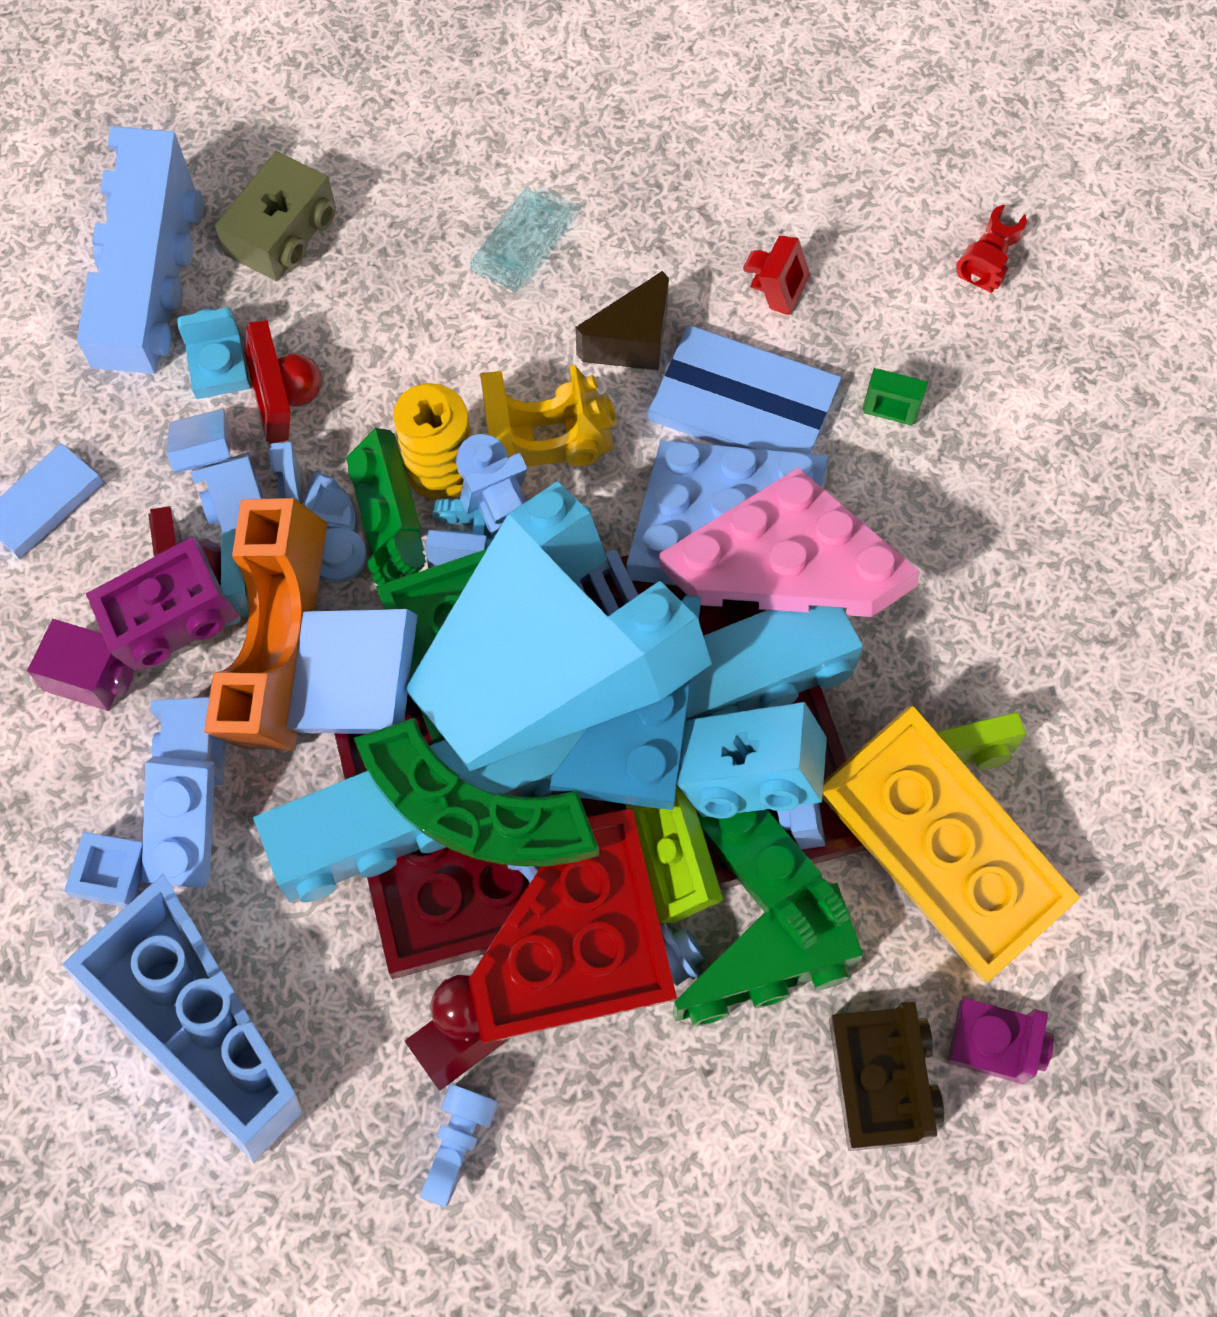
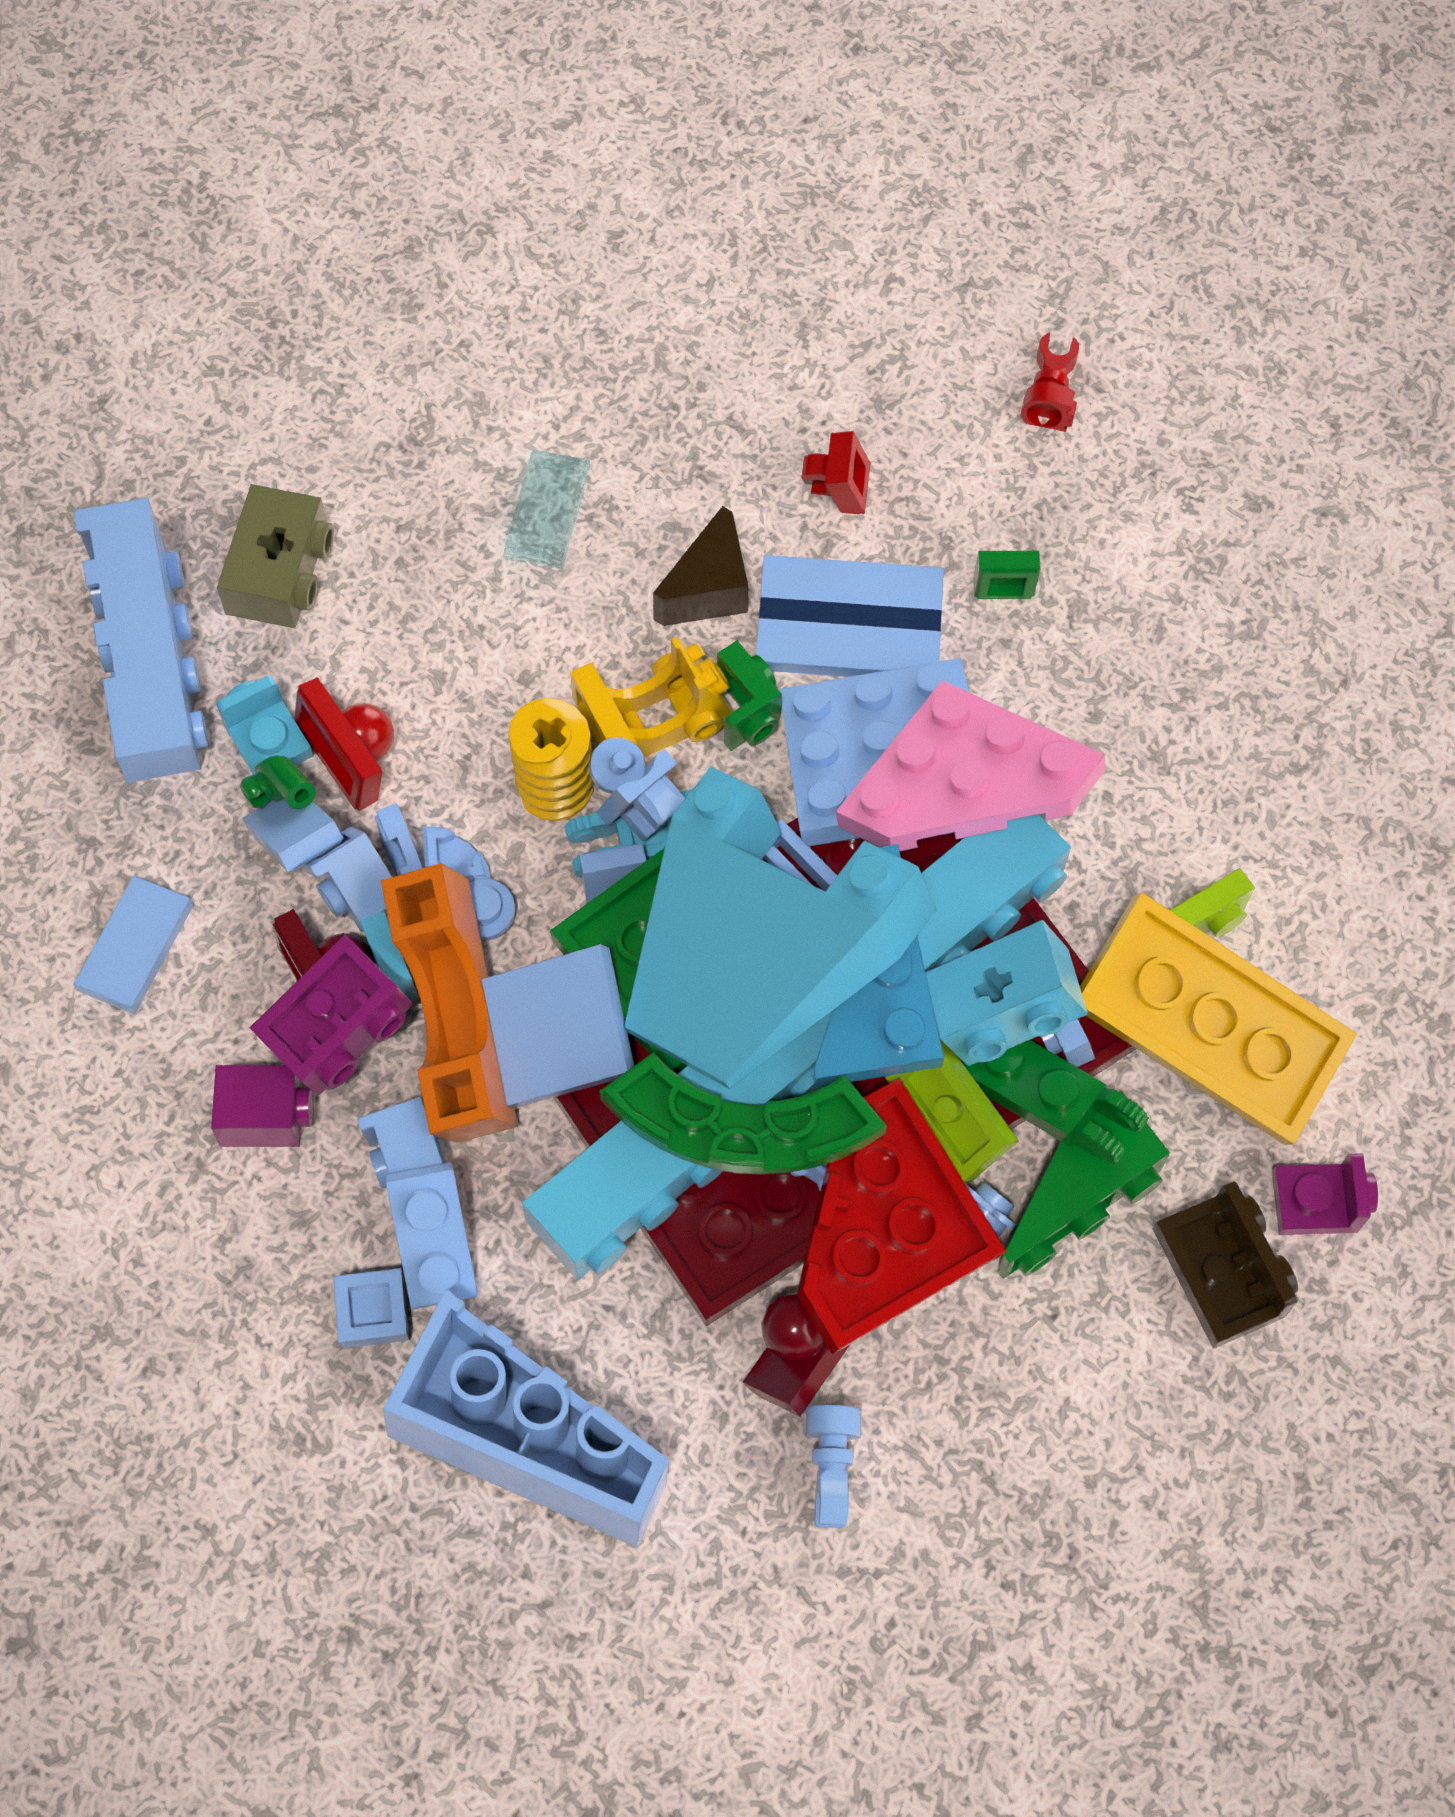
camera: 20 degrees left, 0 degrees up
(203, 399) = (278, 780): none -> green arm
(386, 507) = (518, 845): green hinge -> none
(636, 429) = (754, 692): none -> green bracket

